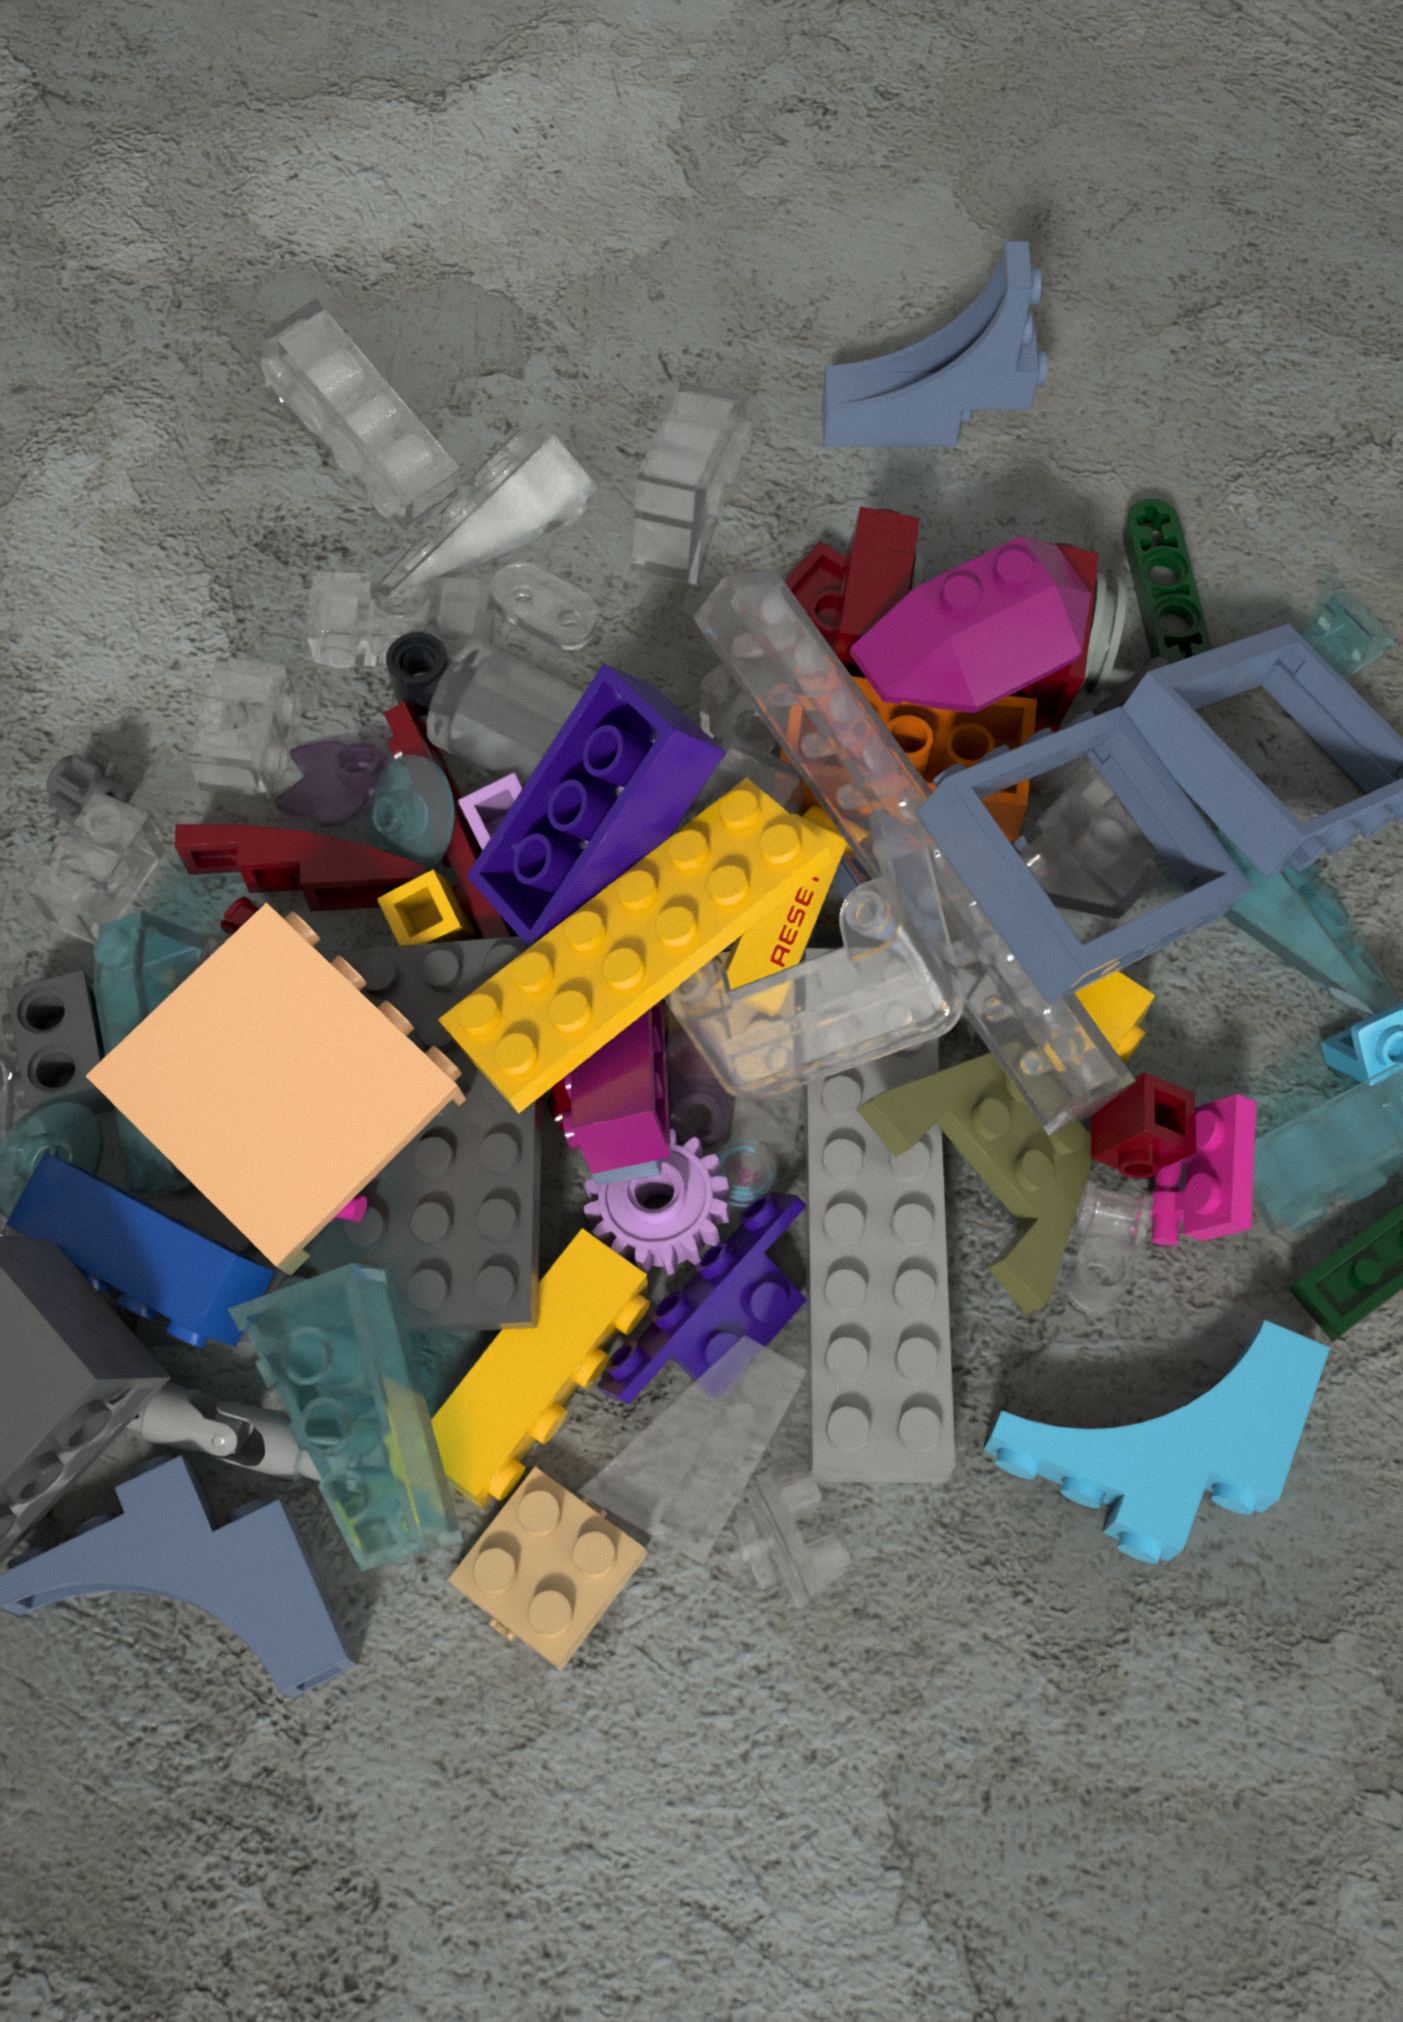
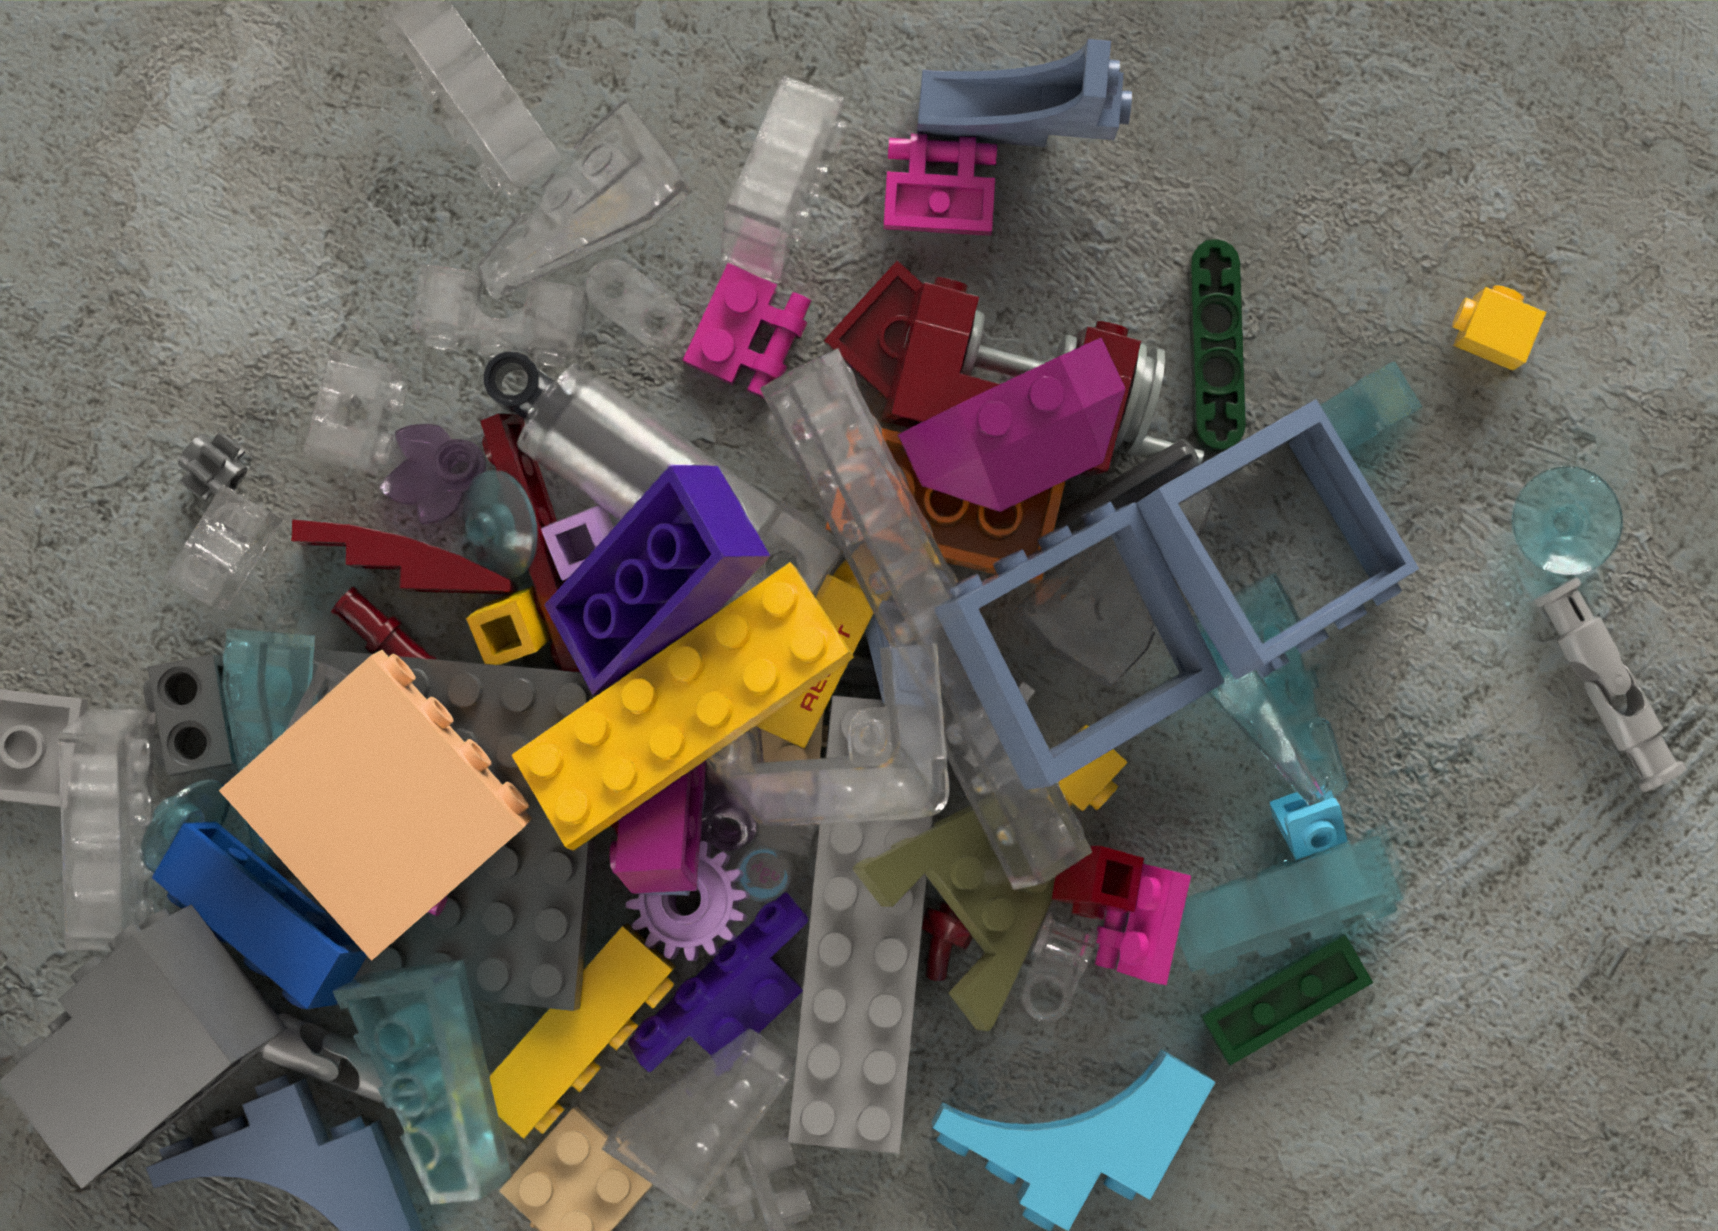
camera: 10 degrees right, 20 degrees up
(648, 623) = (732, 323): none -> dark pink plate
(837, 490) = (940, 201): none -> dark pink plate
(970, 1207) = (946, 932): none -> dark red plate

